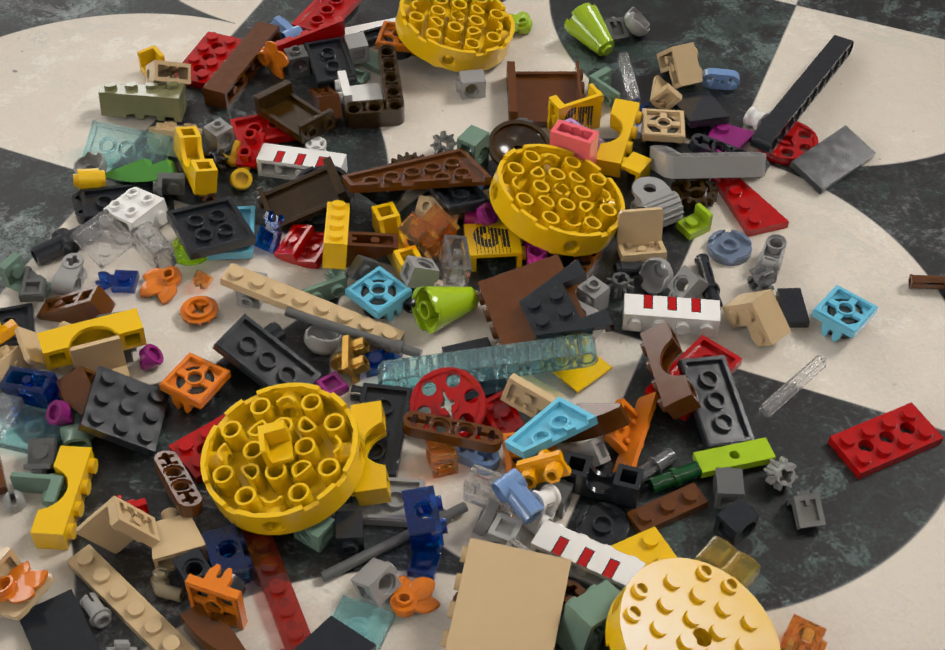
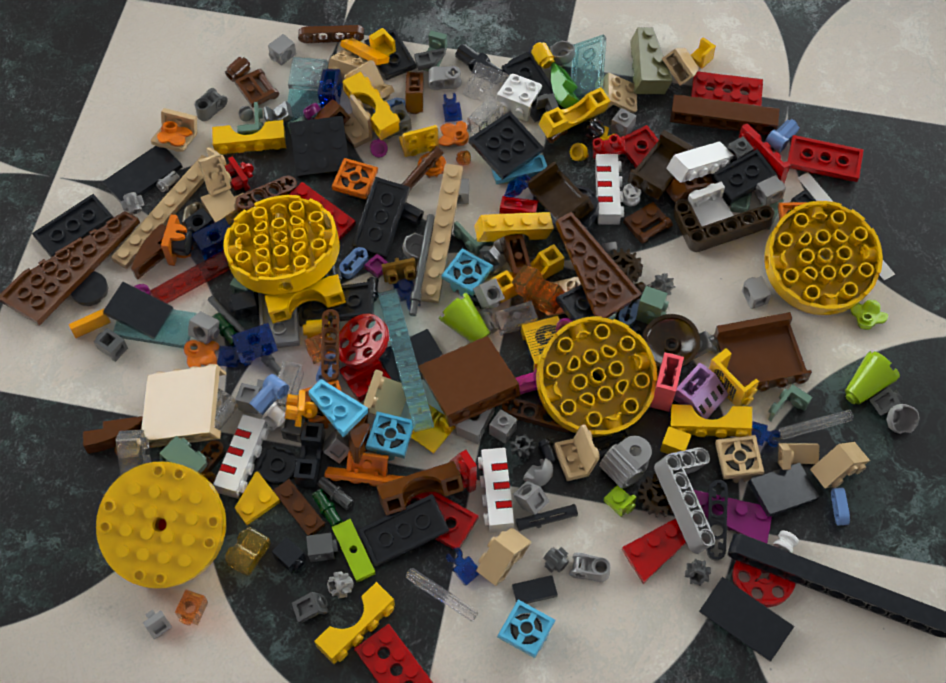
camera: 80 degrees right, 15 degrees up
(158, 314) = (419, 141): none -> yellow bracket
(203, 305) = (426, 163): none -> reddish brown pin
(273, 58) = (733, 128): orange plate -> none
(275, 443) = (274, 231): yellow panel -> none
(307, 81) = (699, 162): none -> white brick
(347, 144) = (643, 219): none -> reddish brown plate
(393, 555) = (226, 329): none -> dark green pin
(412, 456) = (313, 328): none -> yellow brick
(554, 314) = (455, 388): black wing -> none
(589, 388) = (390, 436): none -> medium azure piece
(654, 311) = (467, 469): none -> red wing
(729, 247) = (599, 533): sand blue tile -> none
(763, 356) = (465, 567): none -> clear blue plate
(783, 179) = (697, 572): none -> dark grey gear
(810, 445) = (336, 642): none -> yellow arch

